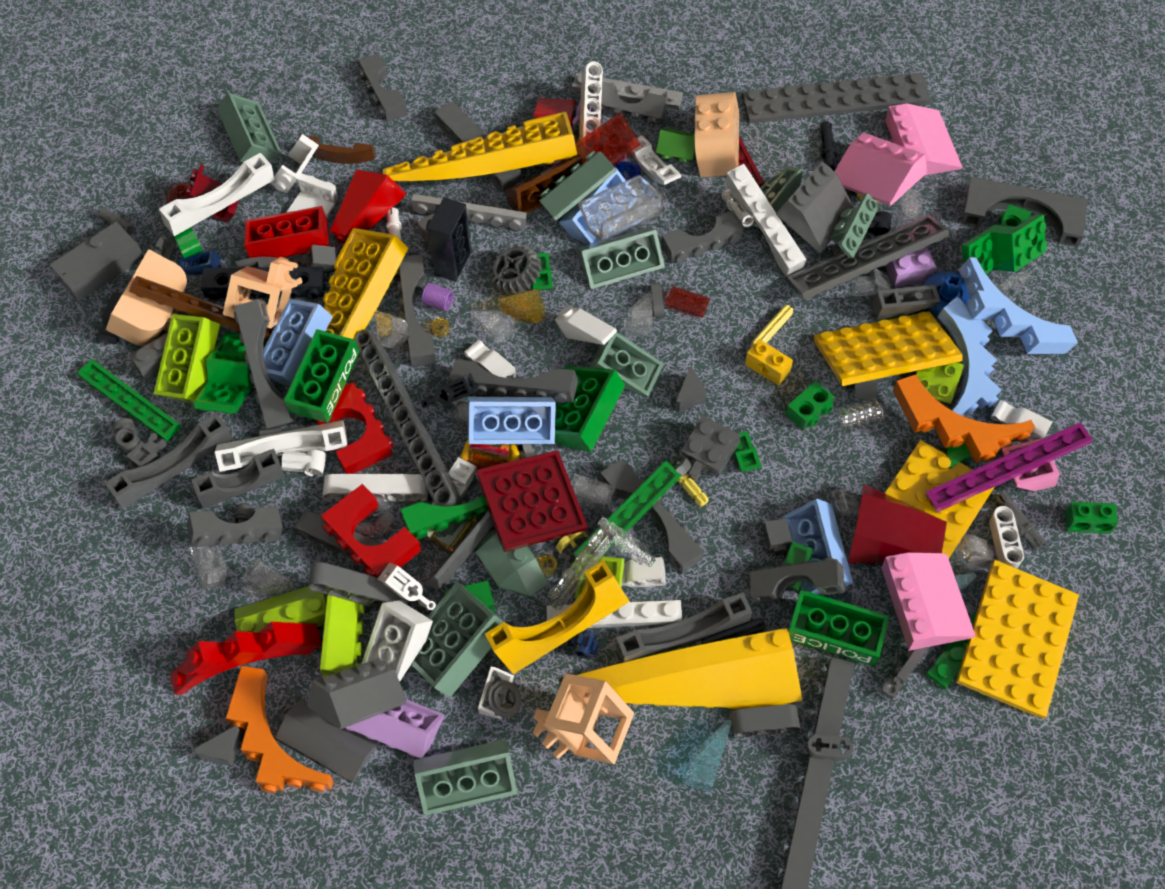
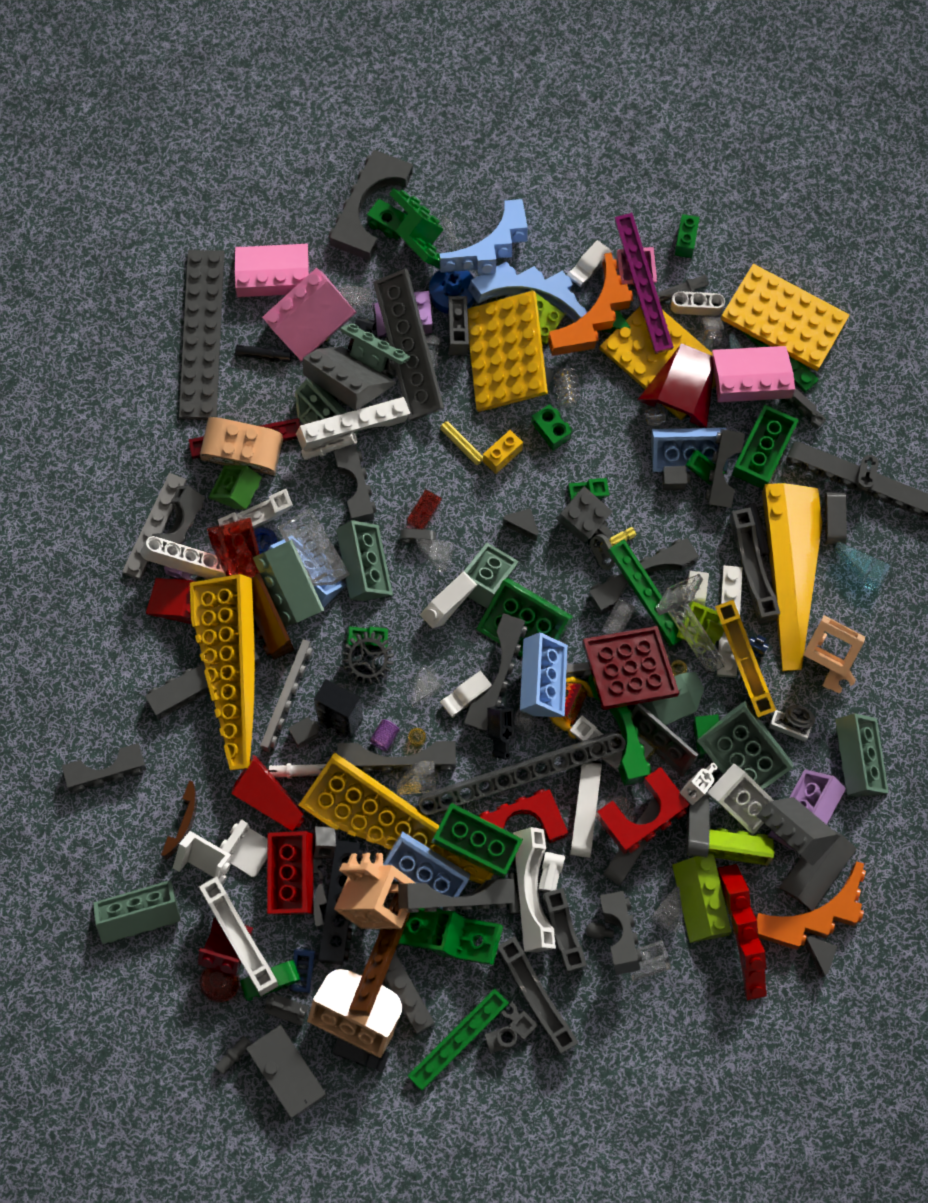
camera: 85 degrees left, 10 degrees up
(184, 357) = (430, 975): lime slope -> none
(524, 306) = (409, 654): clear yellow slope -> none

